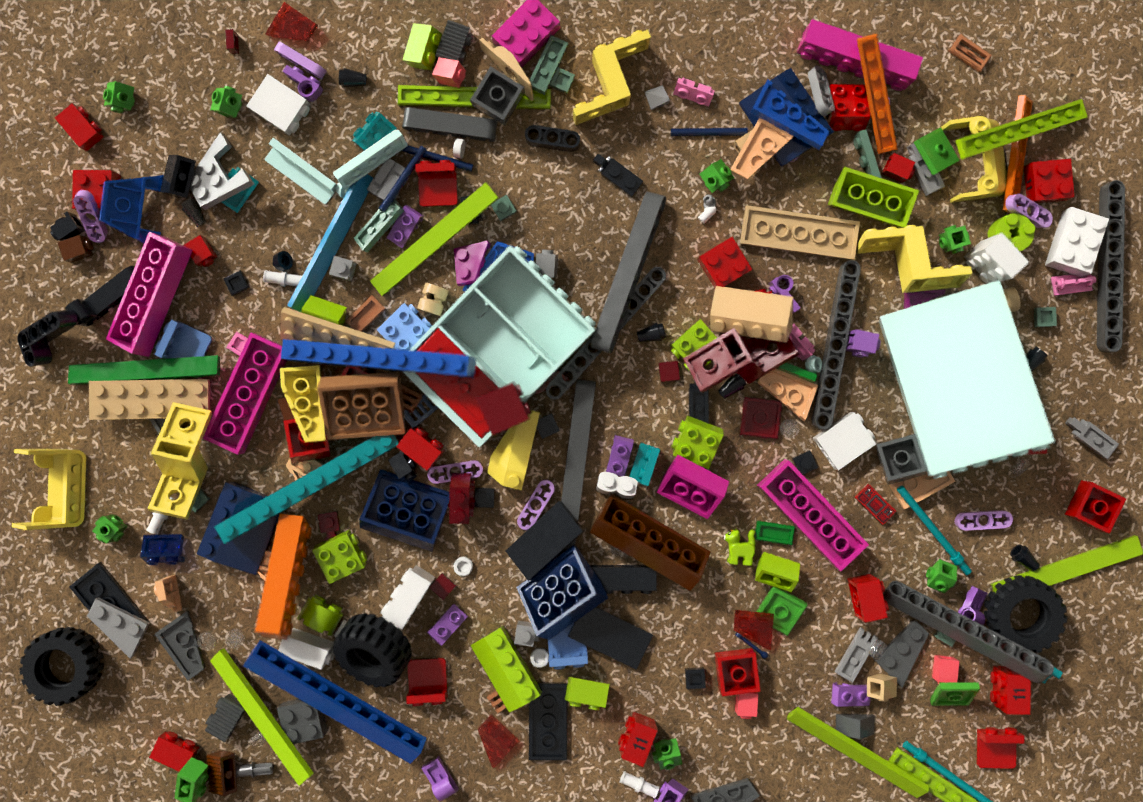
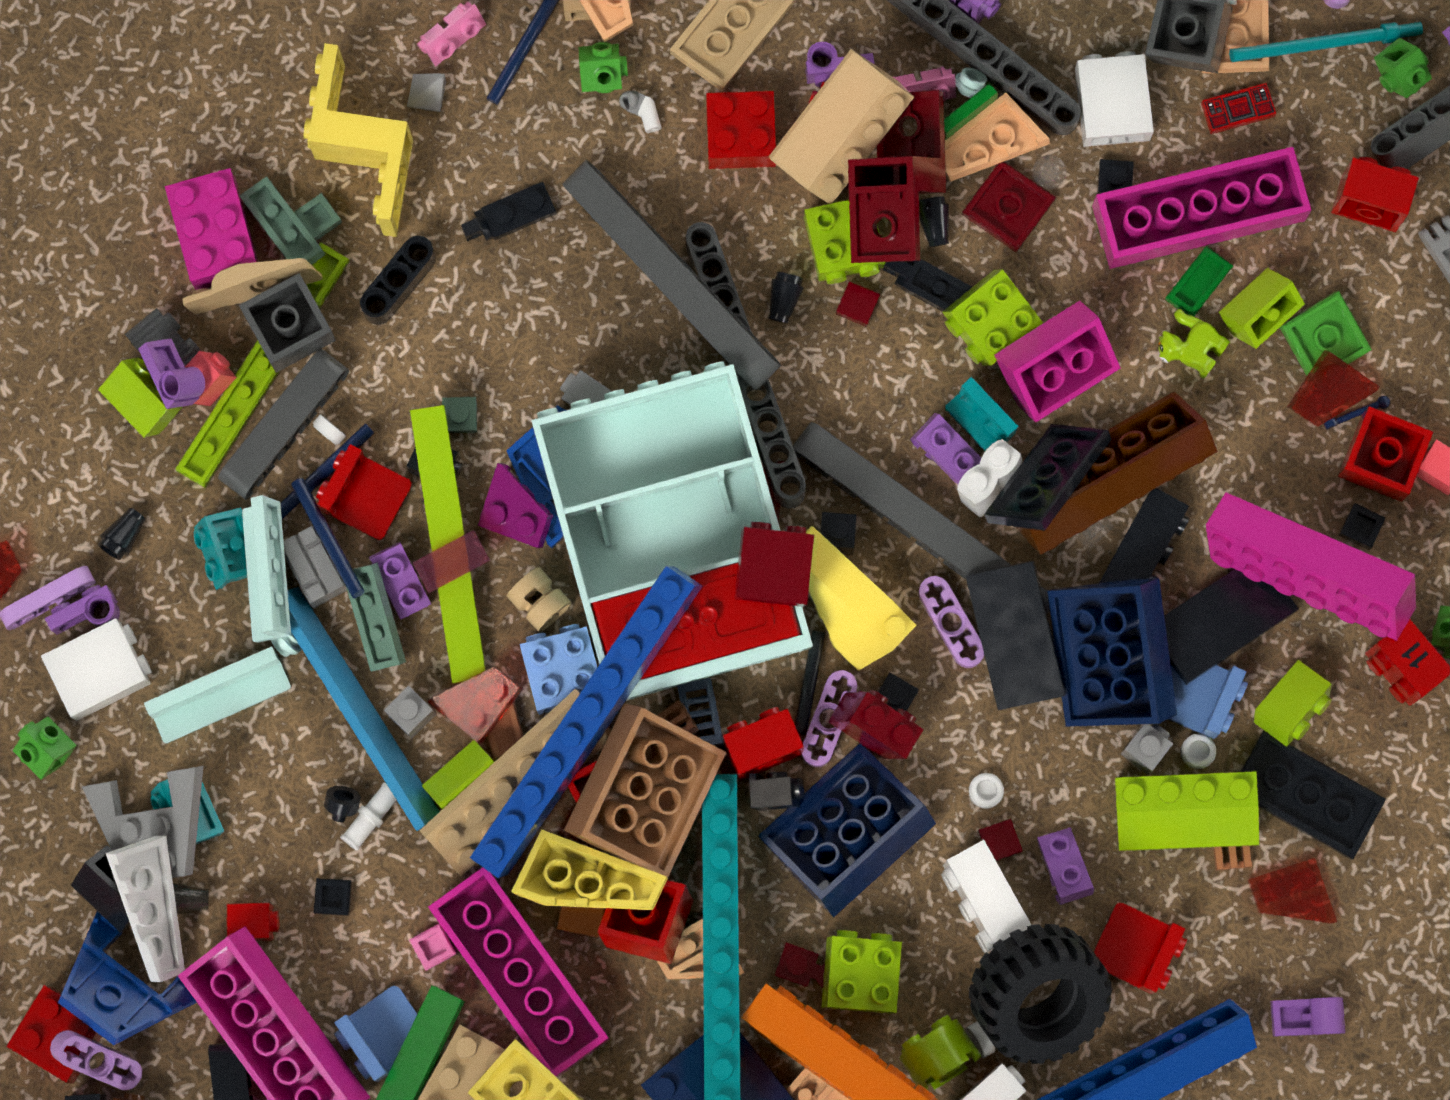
camera: 55 degrees left, 10 degrees down
(176, 195) = (148, 896): none -> white wing
(366, 299) = (478, 702): none -> clear red wing
(425, 246) = (451, 561): none -> clear pink tile
(435, 56) = (174, 382): none -> medium lavender plate
(467, 452) = (809, 682): none -> black bar
(630, 515) = (1048, 477): none -> black tile
(656, 670) = (1311, 566): none -> dark pink brick

